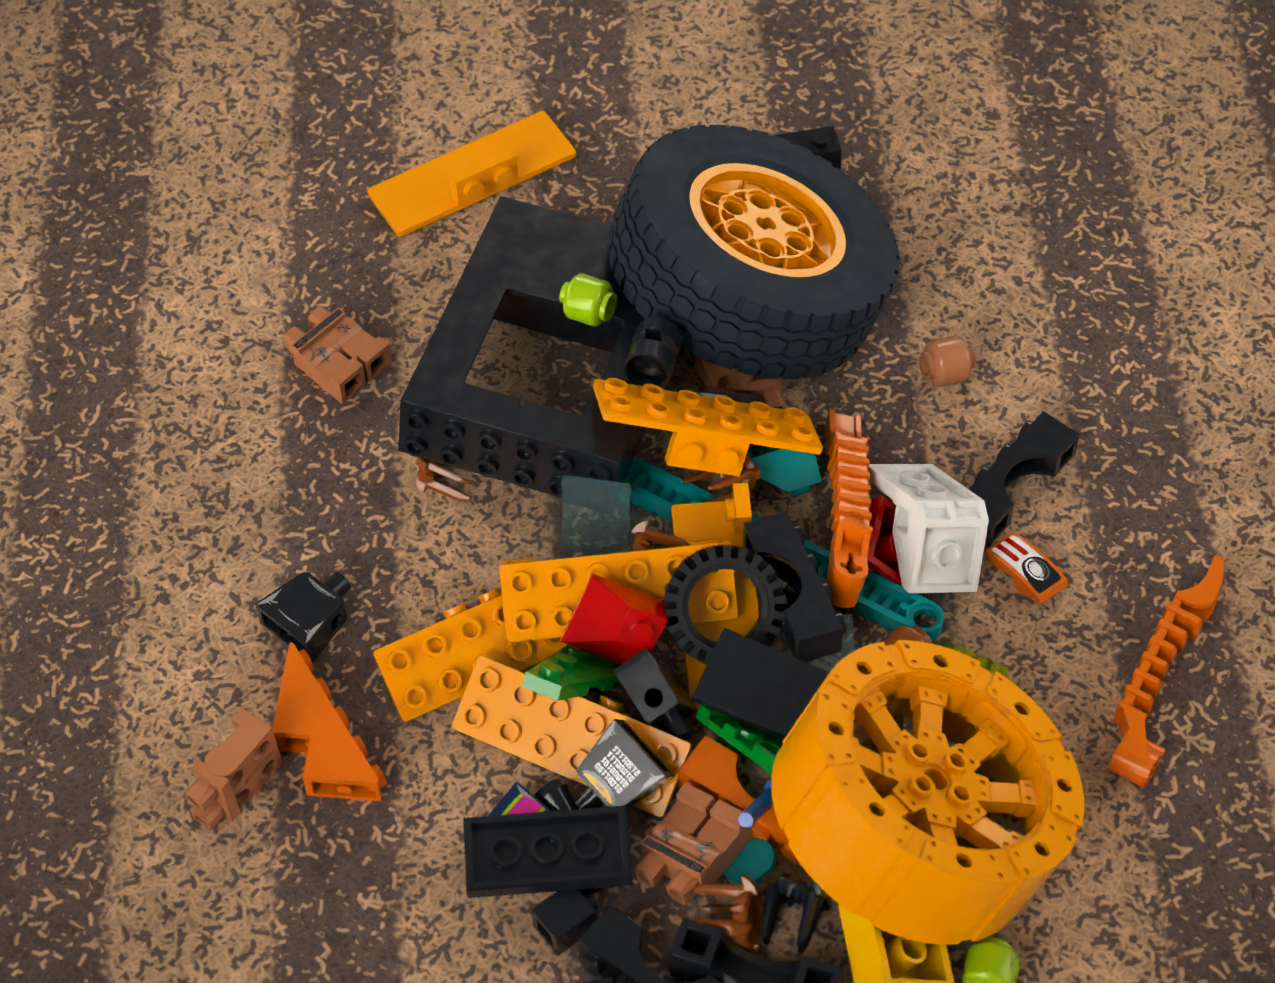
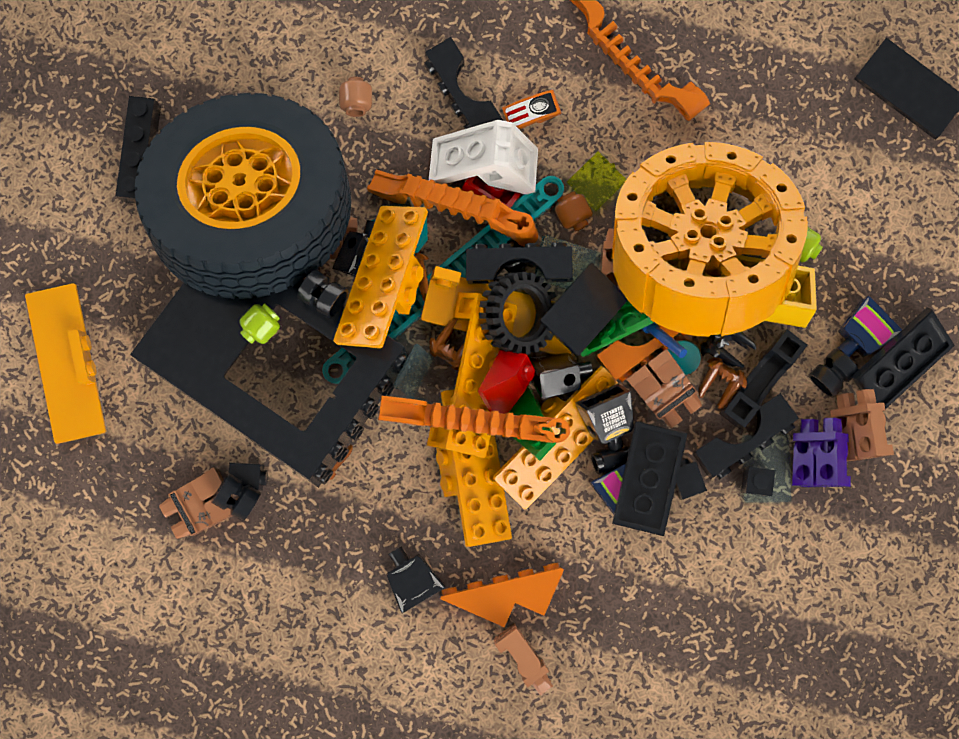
camera: 70 degrees left, 30 degrees up
(356, 366) = (243, 503): none -> black wheel
(387, 386) = (250, 474): none -> black brick
(547, 573) = (477, 421): none -> orange piece

